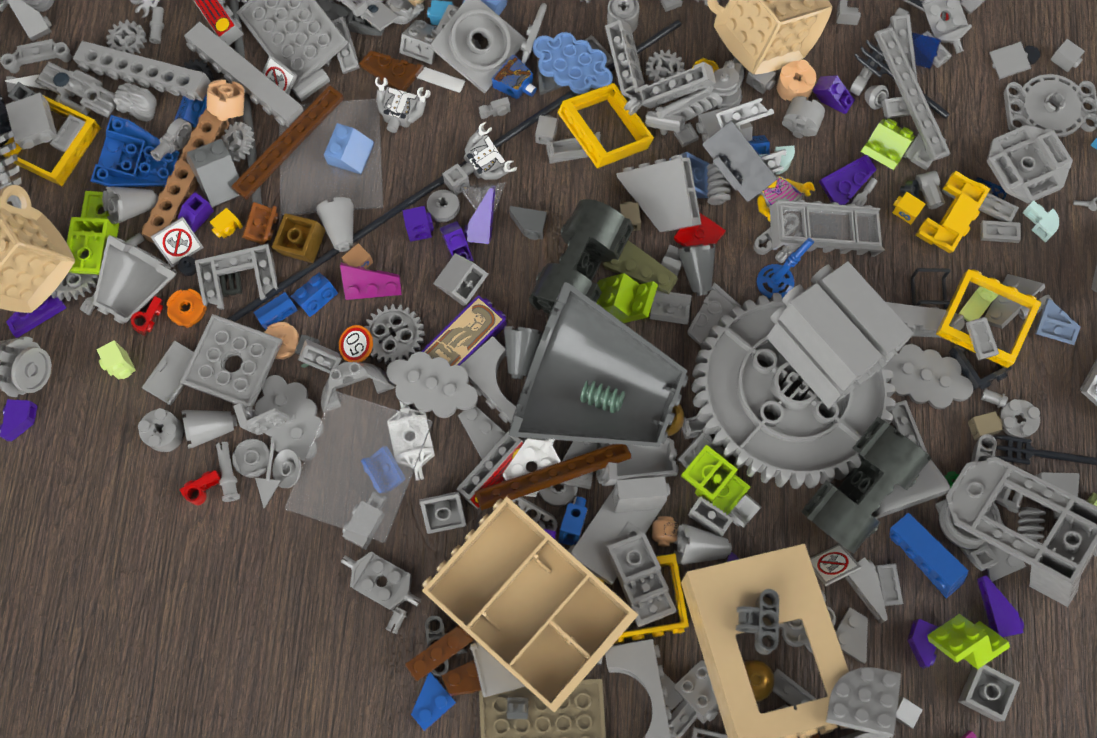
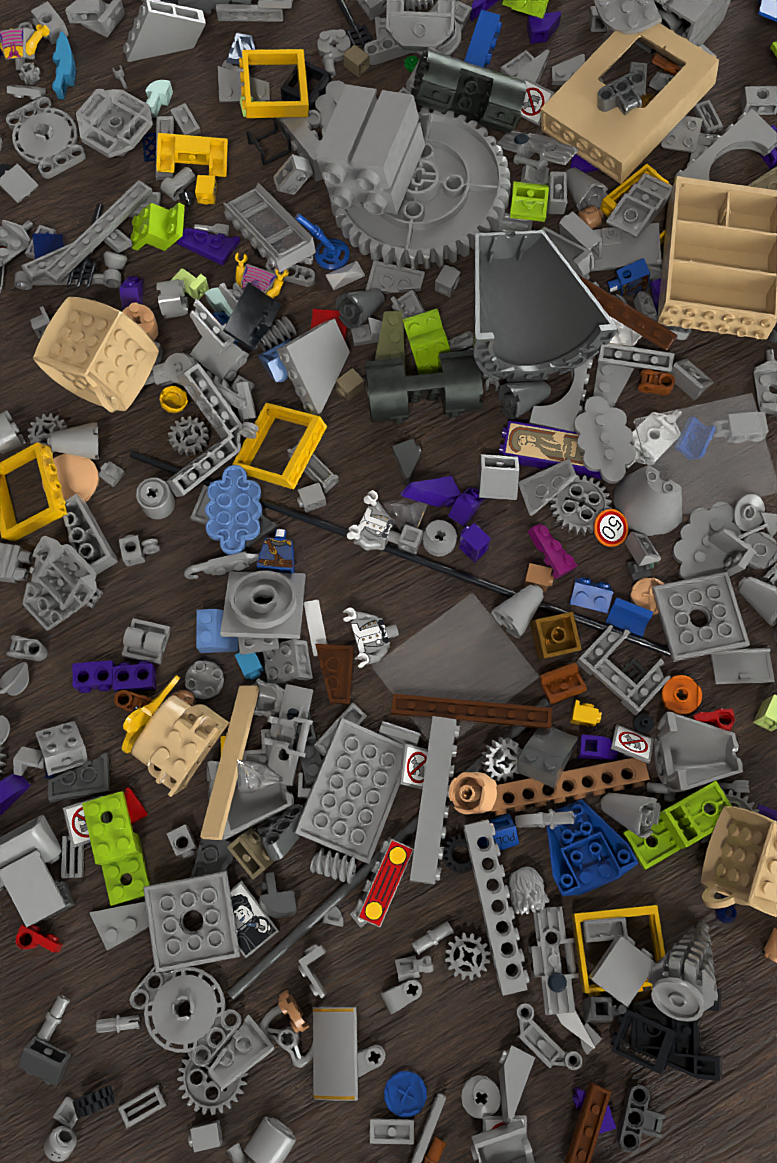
camera: 125 degrees left, 0 degrees up
(348, 149) = (442, 653): medium blue slope -> none
(427, 313) = (545, 485): none -> light grey wing
(458, 473) = (654, 382): none -> dark orange piece
(497, 108) = (316, 551): light grey plate -> none
(602, 397) = (525, 300): sand green piece -> none
(682, 356) = (447, 280): none -> light grey brick
(745, 279) = (345, 275): none -> white slope
(774, 535) = (527, 144): none -> light grey piece
(815, 145) = (193, 286): none -> yellowish green bracket
(877, 279) = (293, 174): none -> light grey brick
(934, 343) = (314, 118): none -> light grey tile
(982, 338) = (299, 72): light grey plate -> none

